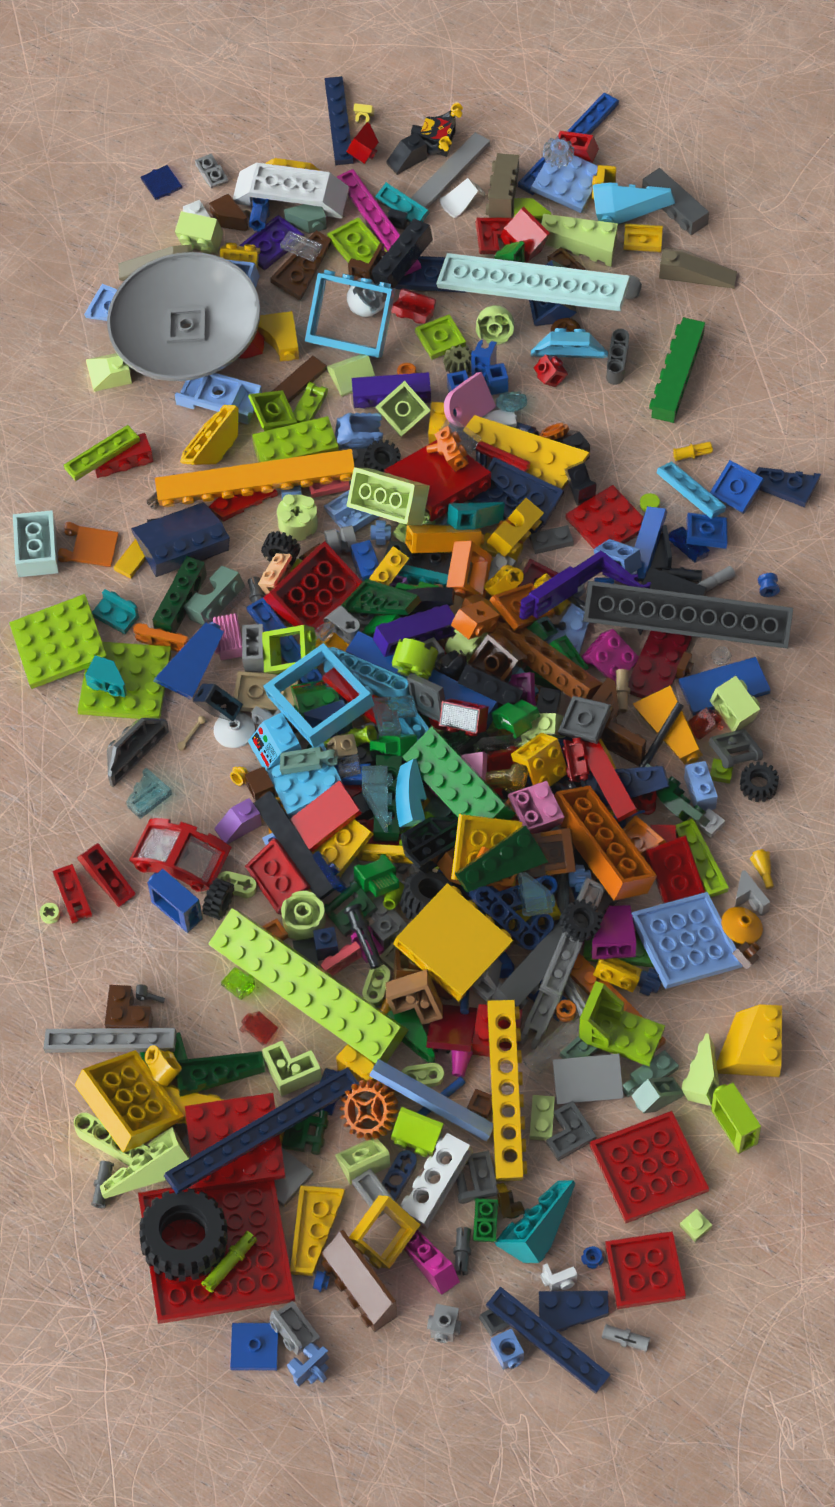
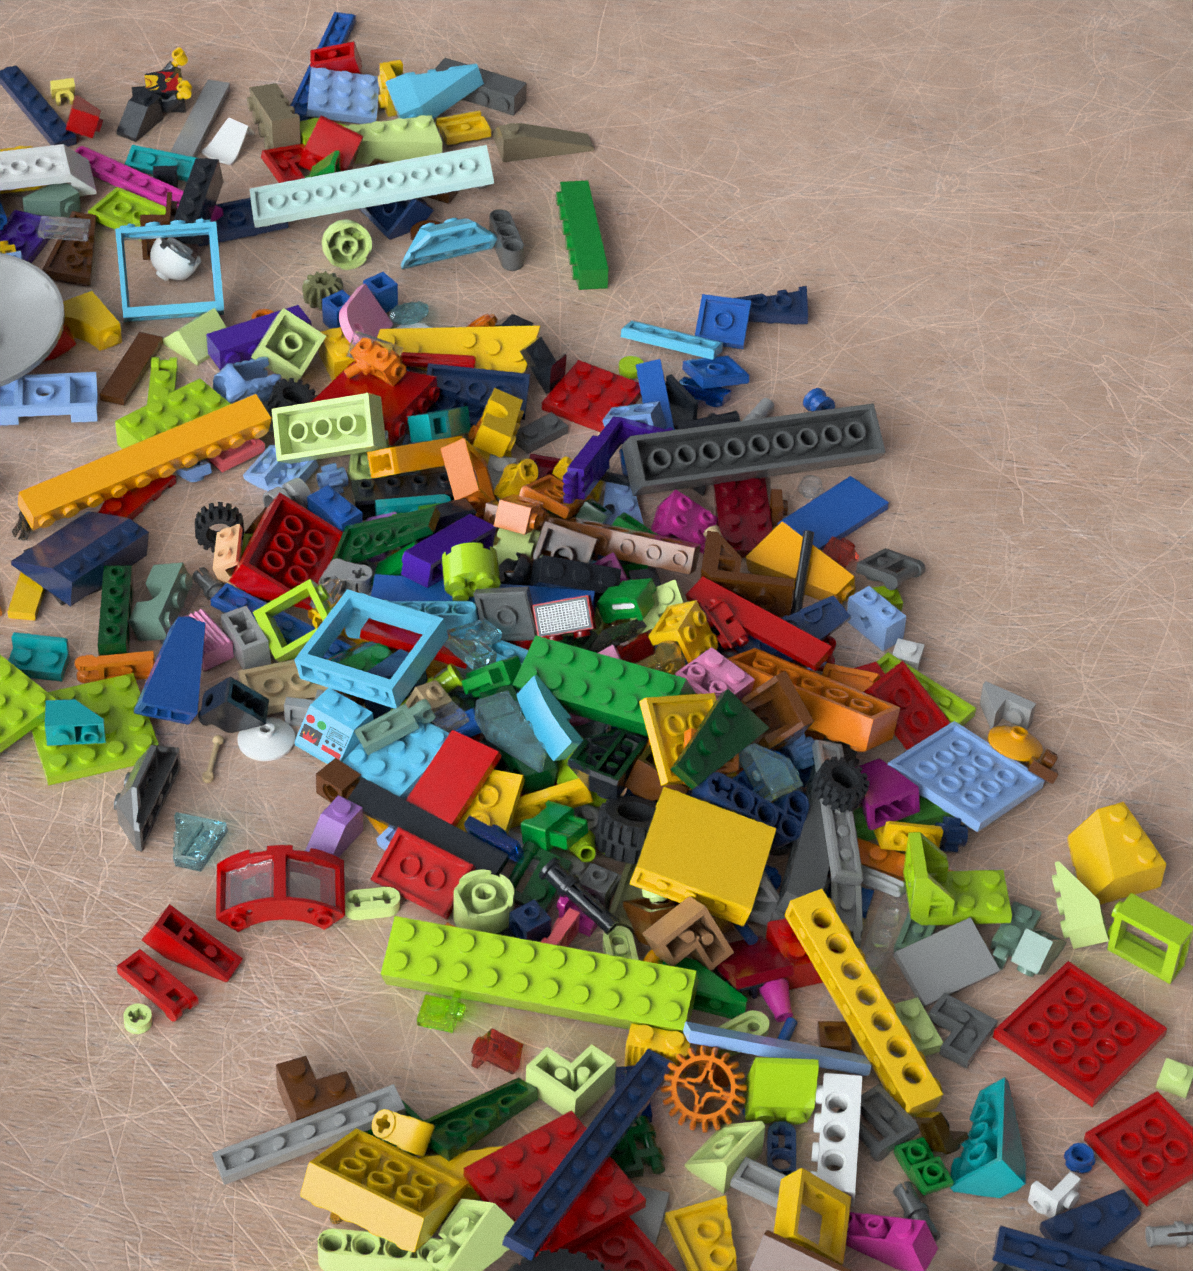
camera: 30 degrees left, 15 degrees down
(142, 994) = (321, 1069): dark grey hand -> none
(174, 900) = (310, 926): blue window -> none
(213, 438) = (64, 439): yellow wedge -> none
(218, 898) = (362, 921): black tyre -> none
(238, 775) = (300, 786): yellow plate -> none
(272, 409) = (122, 392): lime slope -> none
(297, 516) = (218, 484): yellowish green brick -> none
(389, 567) = (371, 500): yellow hinge -> none
(414, 306) = (240, 251): red bracket -> none
(439, 336) = (283, 274): lime plate -> none
(483, 357) = (354, 271): blue hinge -> none
(550, 370) = (438, 270): red brick -> none
(558, 152) = (323, 66): clear gear -> none
(563, 1016) = (875, 904): orange bush -> none
(585, 719) = (711, 577): dark grey plate -> none
(679, 804) = (868, 643): dark green slope -> none
(692, 451) = (648, 305): yellow axle -> none
(735, 704) = (865, 520): yellowish green brick -> none
(759, 771) = (938, 584): black tyre -> none
(762, 863) = (994, 672): yellow cone -> none

